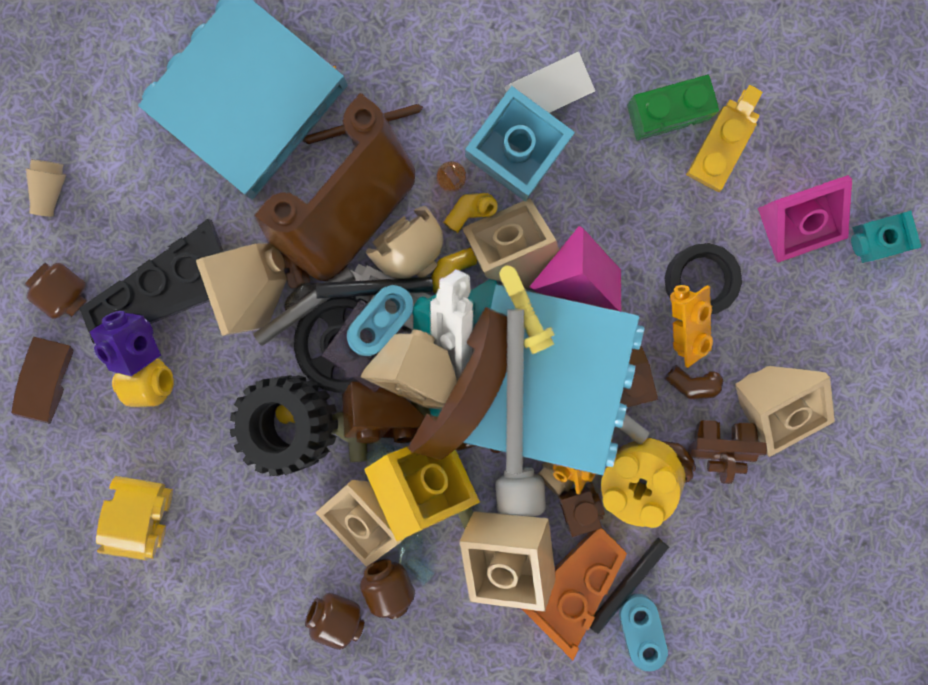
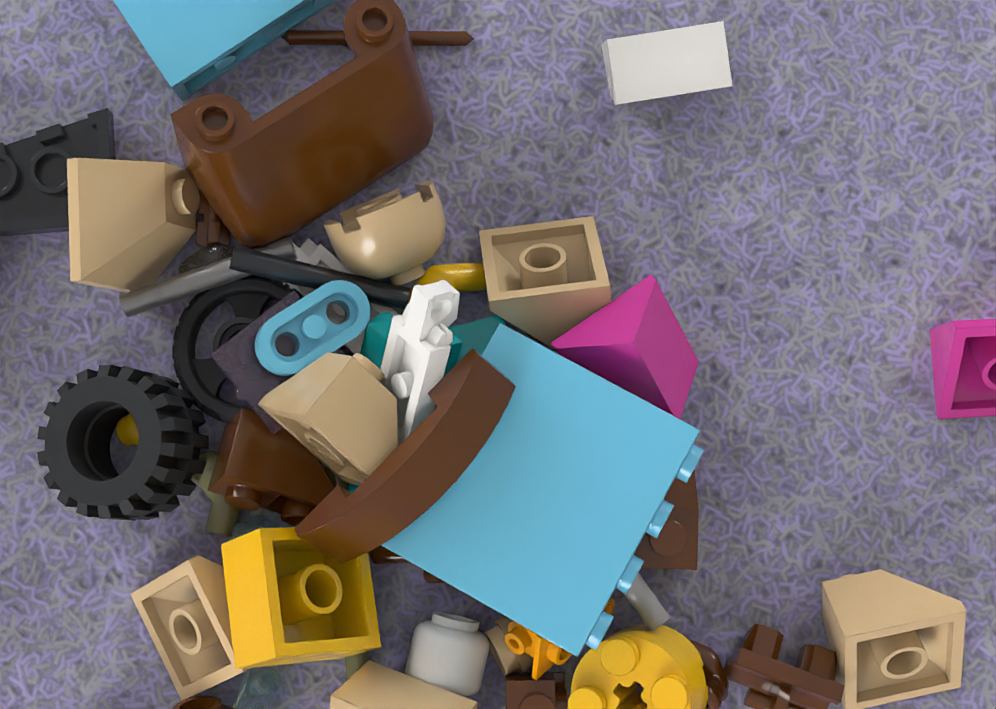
camera: 20 degrees right, 5 degrees down
(444, 180) = (473, 155): clear orange hinge -> none
(470, 206) = (500, 203): yellow arm -> none
(515, 373) = (479, 489): light grey bar -> none
(518, 143) = (596, 129): medium azure slope -> none
(537, 337) = (538, 418): light yellow hinge -> none
(672, 107) = (840, 143): green brick -> none
(693, 335) = (782, 482): light orange hinge -> none
(695, 388) = (763, 572): reddish brown arm -> none
(718, 254) = (861, 402): black tyre -> none
(726, 140) = (907, 216): yellow hinge -> none

